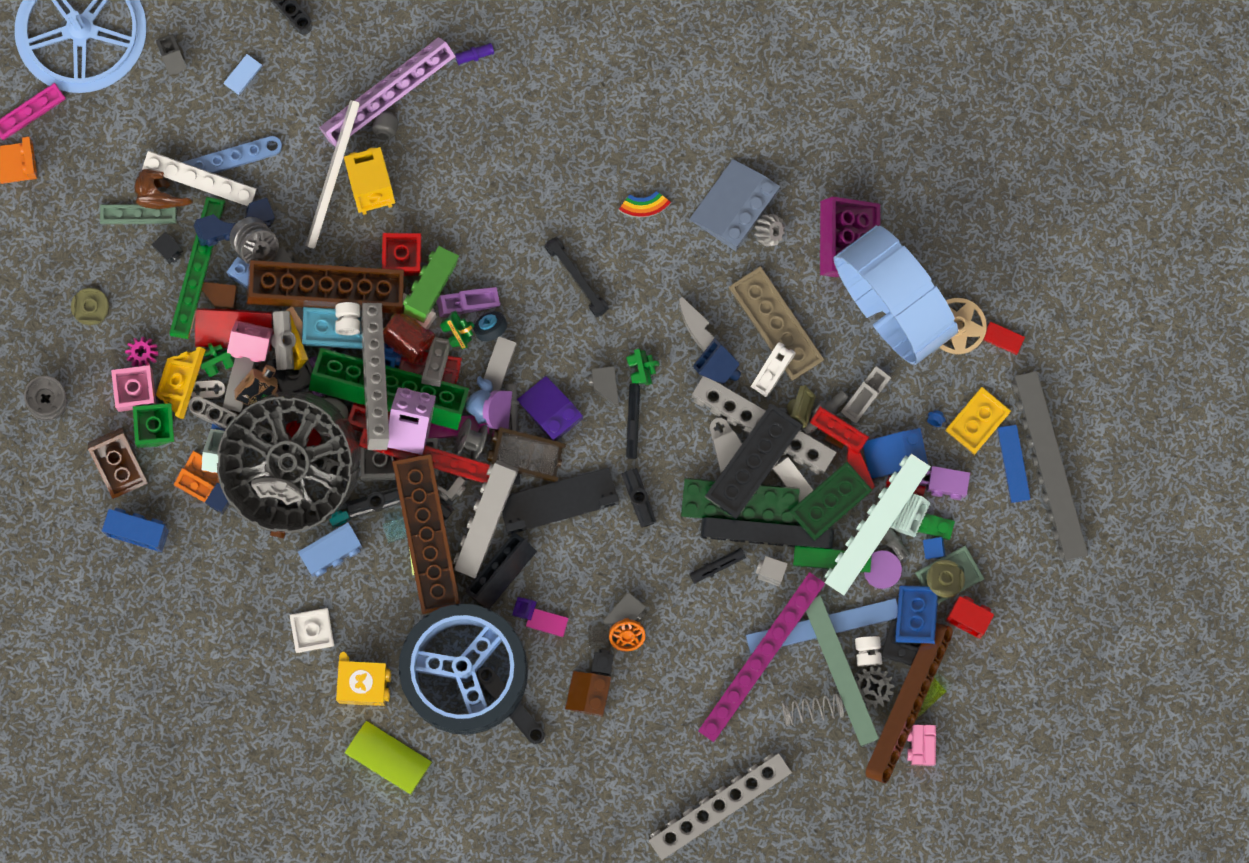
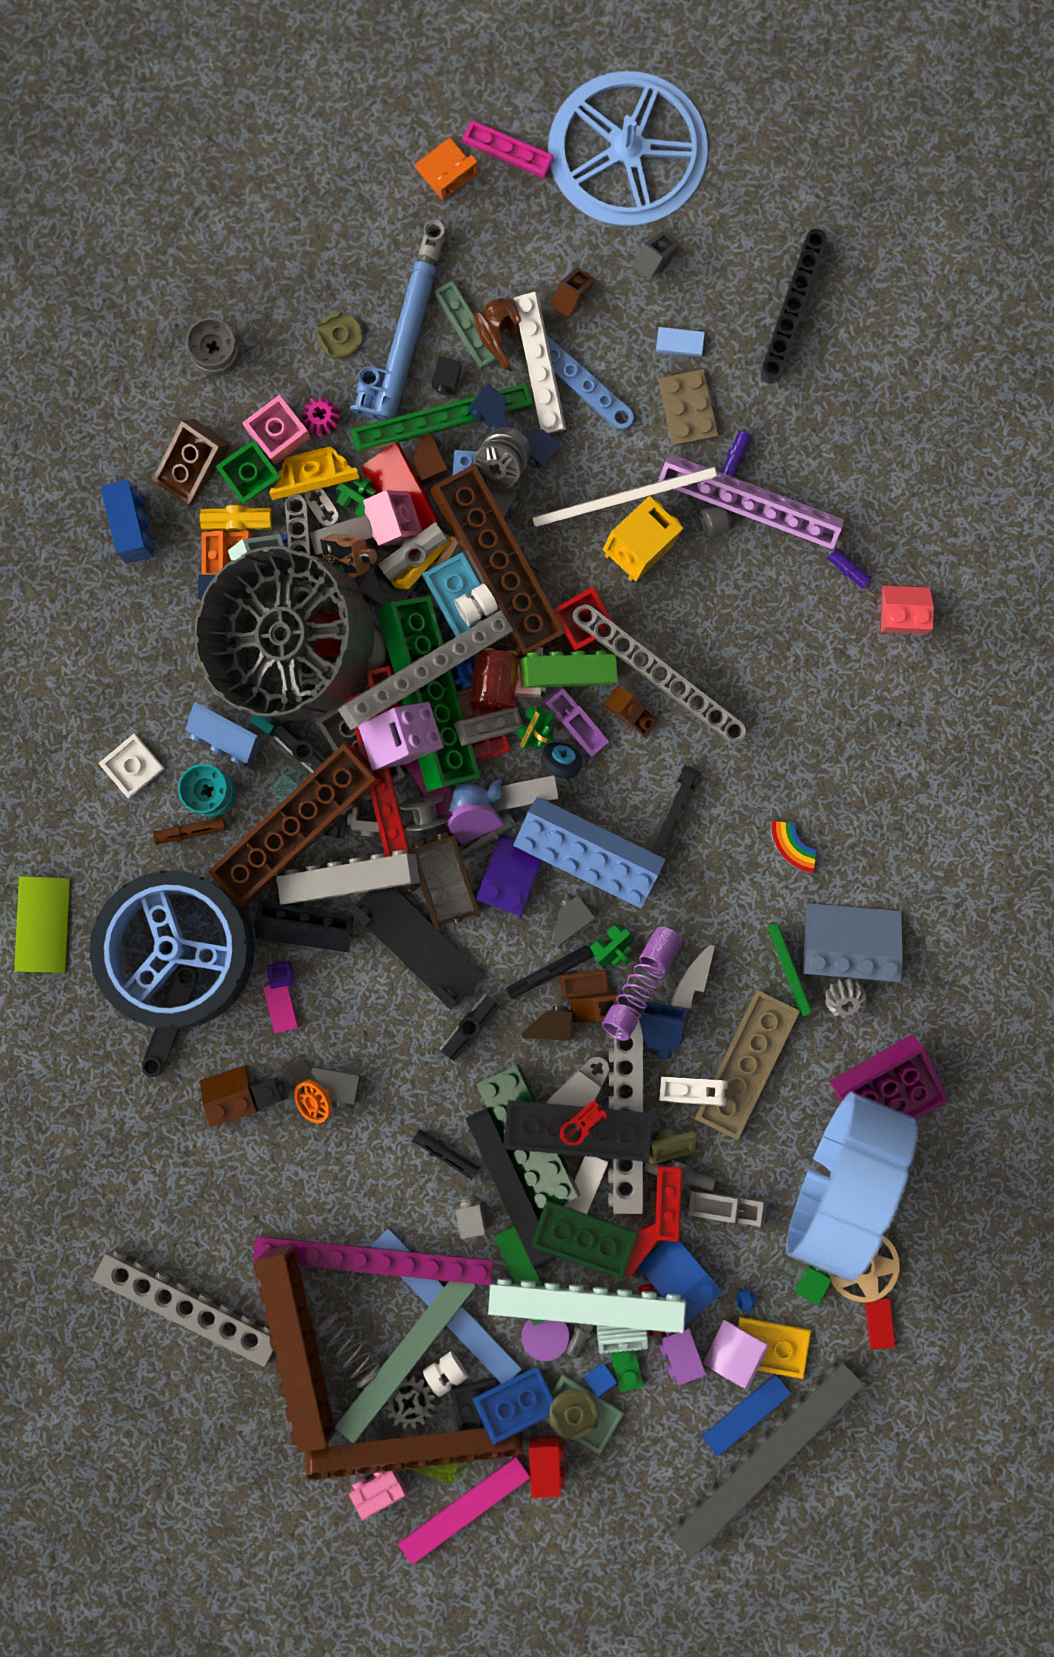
camera: 70 degrees right, 5 degrees up
(154, 298) = (383, 396): none -> medium blue piece
(161, 127) = (571, 292): none -> reddish brown slope
(178, 454) = (236, 518): none -> yellow piece
(278, 489) = (247, 640): light grey tile -> none
(293, 96) = (687, 408): none -> dark tan plate
(347, 82) = (736, 454): none -> dark purple pin
(355, 575) = (194, 787): none -> teal wheel
(362, 682) = (101, 851): yellow container -> none
(380, 623) = (178, 832): none -> reddish brown pin
(464, 229) = (670, 677): none -> light grey beam
(484, 259) = (631, 711): none -> reddish brown slope
(527, 32) = (907, 610): none -> coral slope
(566, 343) = (589, 852): none -> medium blue brick
(655, 402) = (584, 984): none -> reddish brown tile
(667, 341) = (656, 958): none -> medium lavender piece
(671, 438) = (551, 1025): none -> dark brown slope
(676, 402) = (593, 1007): none -> reddish brown slope
(728, 257) = (789, 969): none -> green tile
(749, 451) = (584, 1120): none -> red piece
(790, 740) = (295, 1348): none -> reddish brown brick
(950, 366) = (813, 1284): none -> green brick
(968, 445) = (735, 1354): none -> lavender slope
(969, 694) = (464, 1510): none -> dark pink tile

